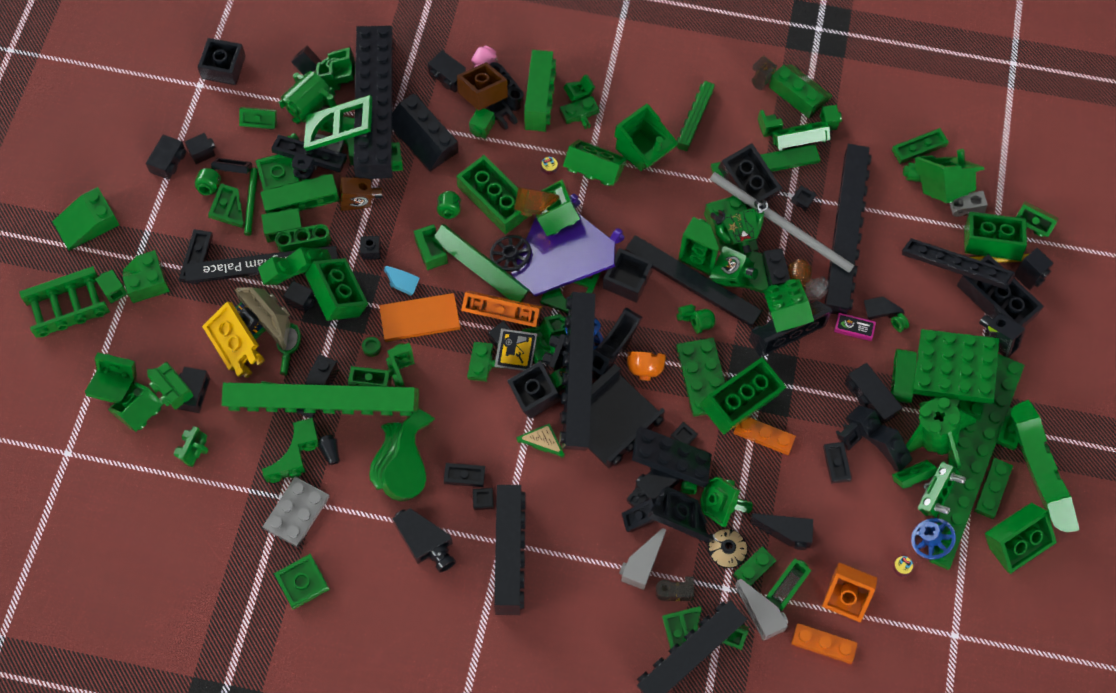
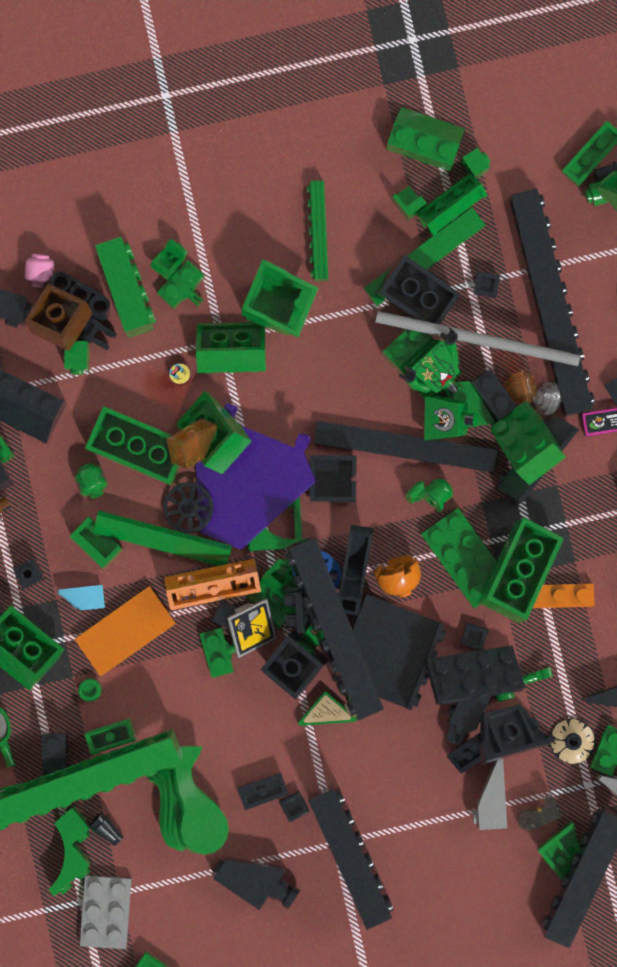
camera: 20 degrees left, 20 degrees up
(398, 358) = (130, 692): green bracket -> none
(699, 246) = (399, 411): green slope -> none
(721, 499) = (546, 698): green piece -> none
(764, 70) = (375, 142): clear smoke leg -> none

